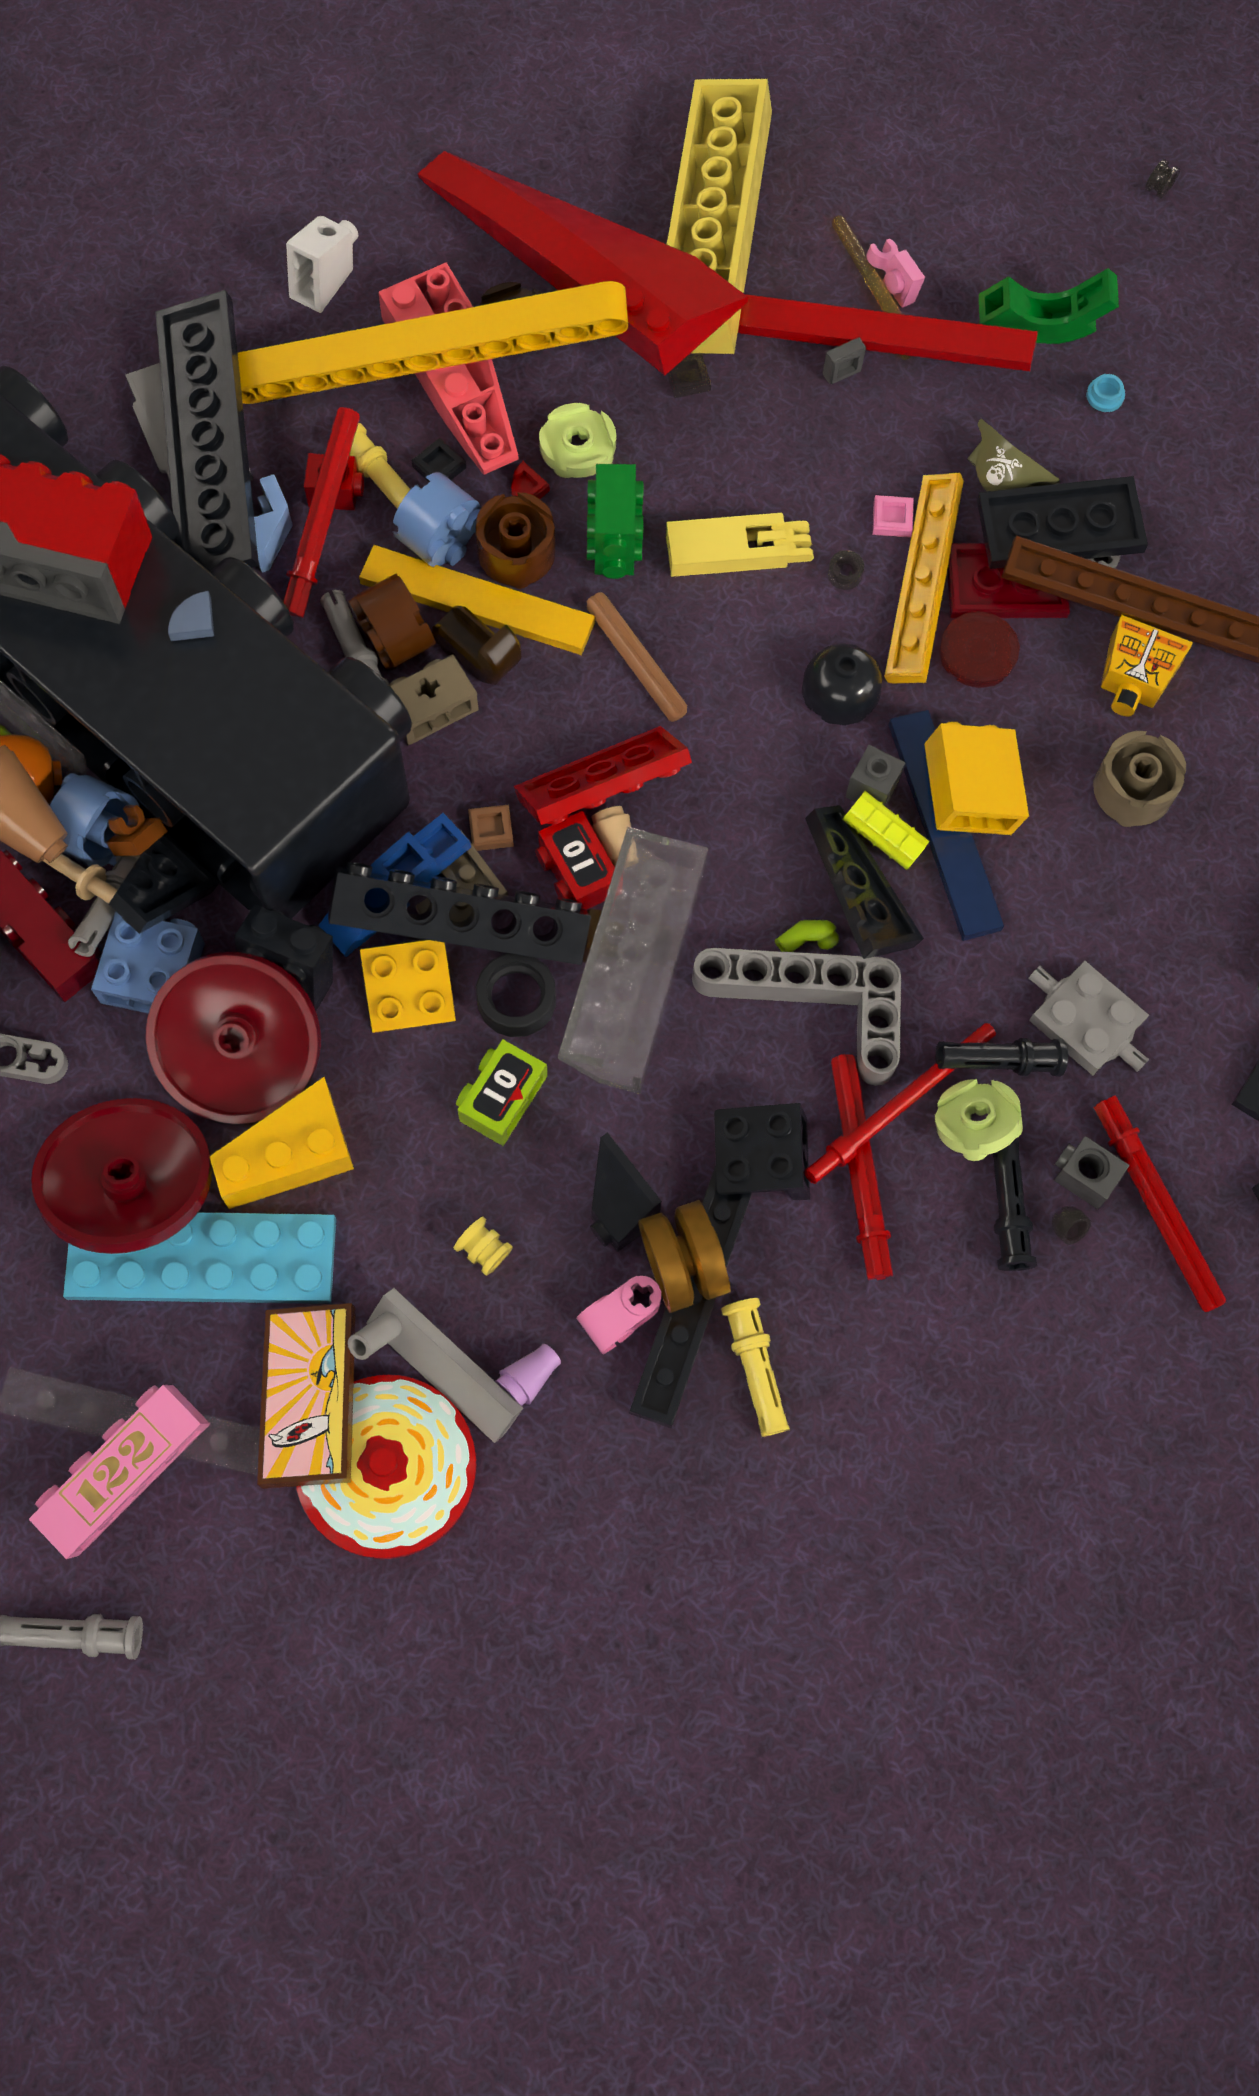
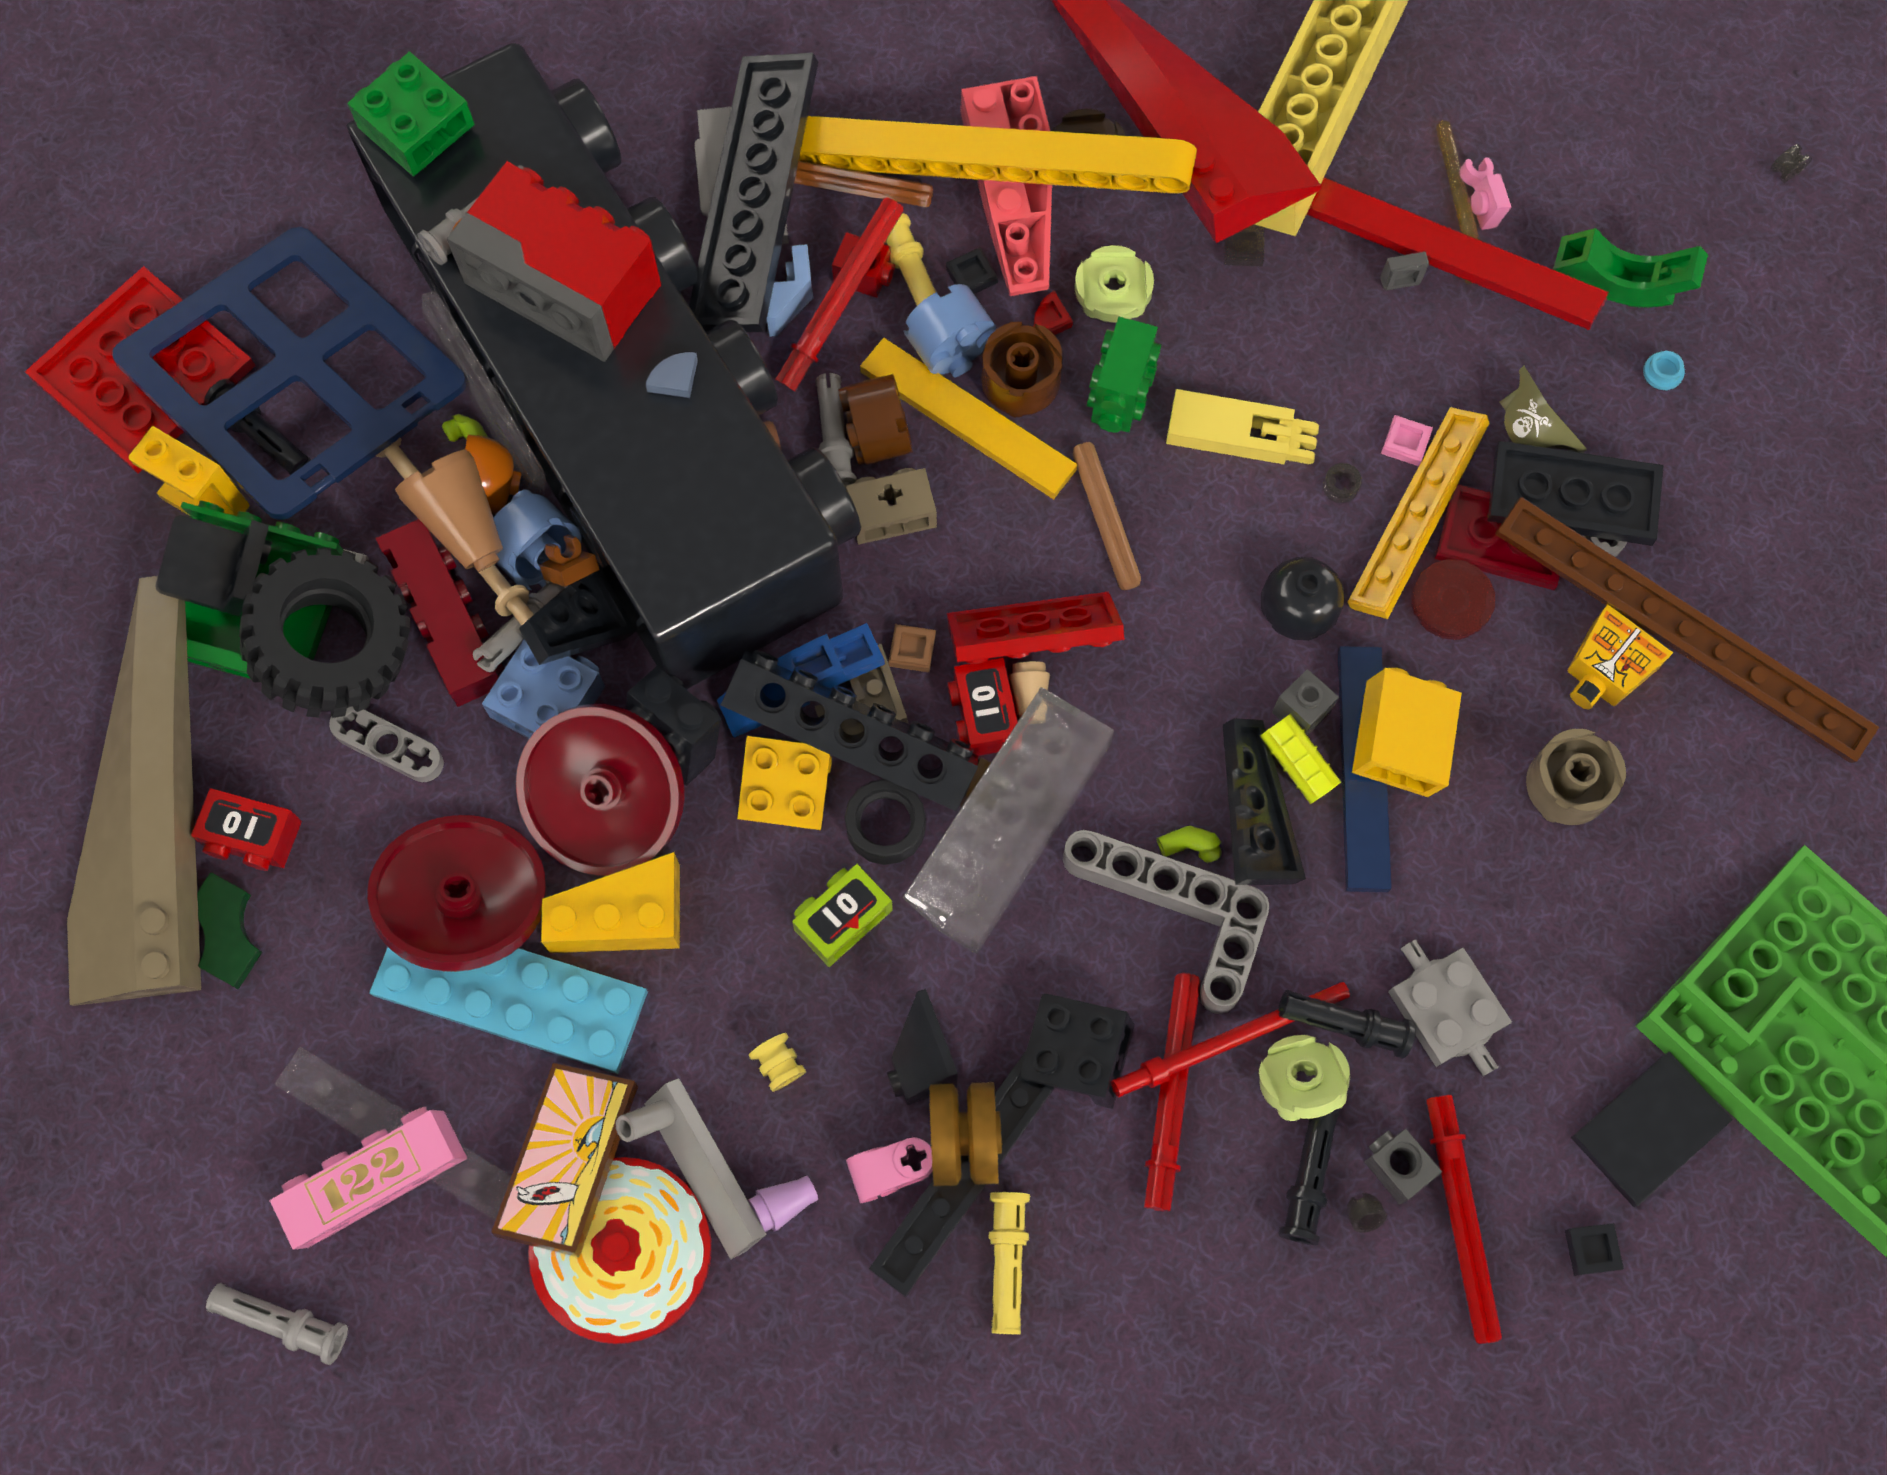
camera: 20 degrees right, 0 degrees up
(309, 405) = (864, 183): none -> dark orange axle
(320, 261) = (916, 43): white torso -> none
(478, 648) = (952, 464): dark brown animal -> none

